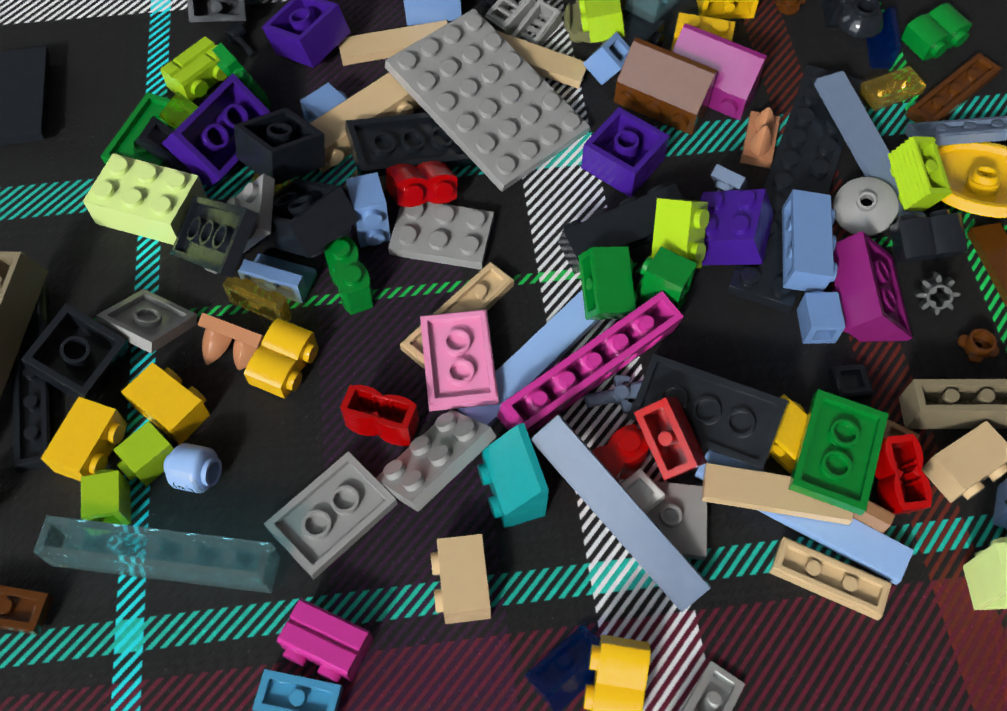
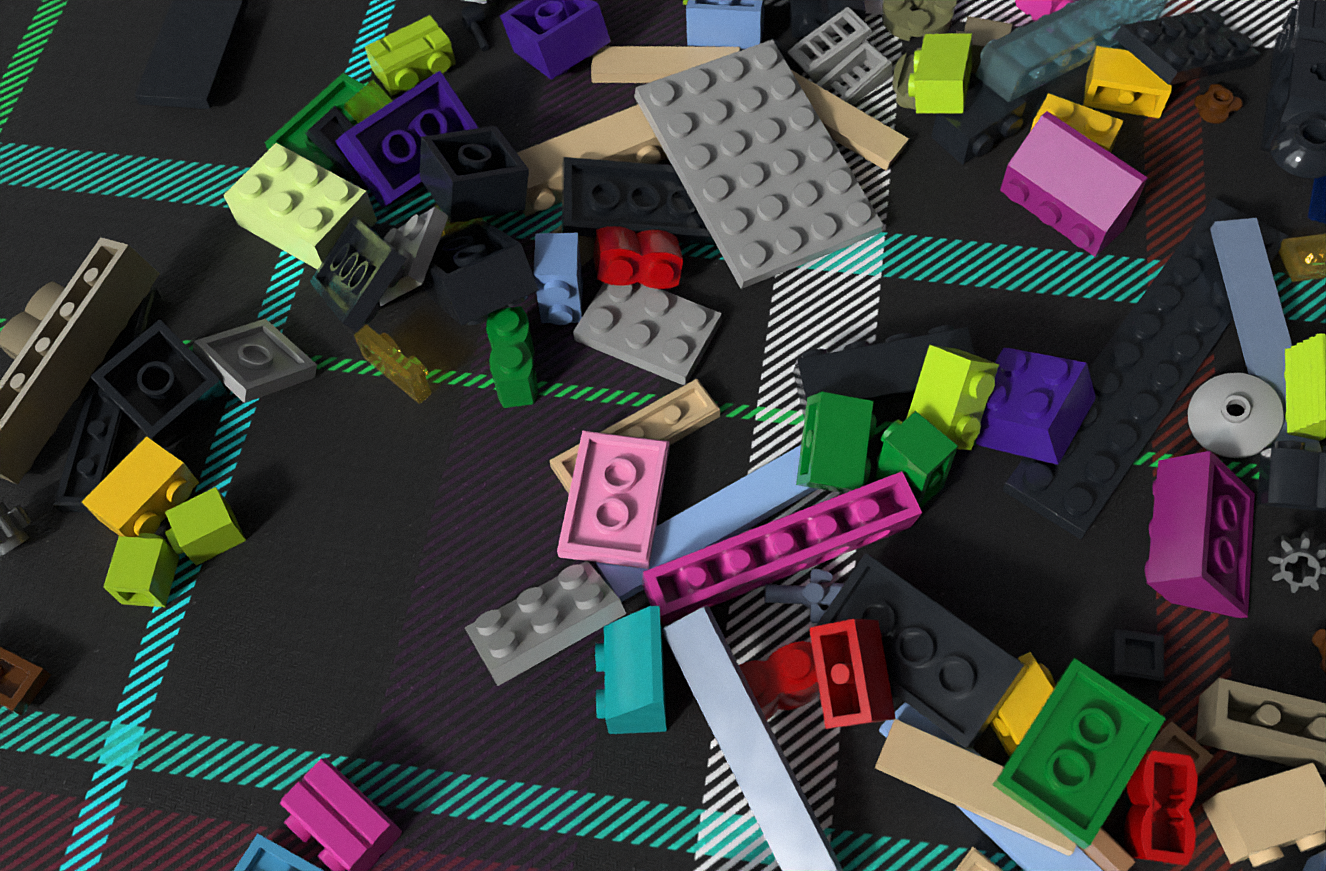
camera: 20 degrees right, 0 degrees up
(158, 554) = (181, 656): clear light blue brick -> none
(167, 402) = (247, 468): yellow brick -> none
(192, 468) = (252, 557): light blue head -> none
(219, 336) = (337, 395): nougat tile -> none
(230, 65) = (457, 74): green plate -> none
(280, 276) = (429, 339): panel -> none
(281, 357) = (398, 444): yellow brick -> none
(321, 102) = (547, 125): medium blue brick -> none
(331, 514) = (397, 659): light grey plate -> none
(375, 414) = (493, 547): red brick -> none
(463, 579) = (531, 787): tan brick -> none
(607, 58) = (935, 138): medium blue brick -> none
(624, 151) = (917, 269): dark purple brick -> none
(643, 490) = (797, 734): white tile -> none
(664, 86) = (998, 191): slope -> none
(683, 518) = (835, 777): light grey plate -> none
(728, 180) = (1042, 340): sand blue plate -> none
(760, 138) = (1114, 288): nougat tile -> none
(808, 241) = (1131, 448): medium blue brick -> none
(820, 317) = (1120, 556): medium blue brick -> none

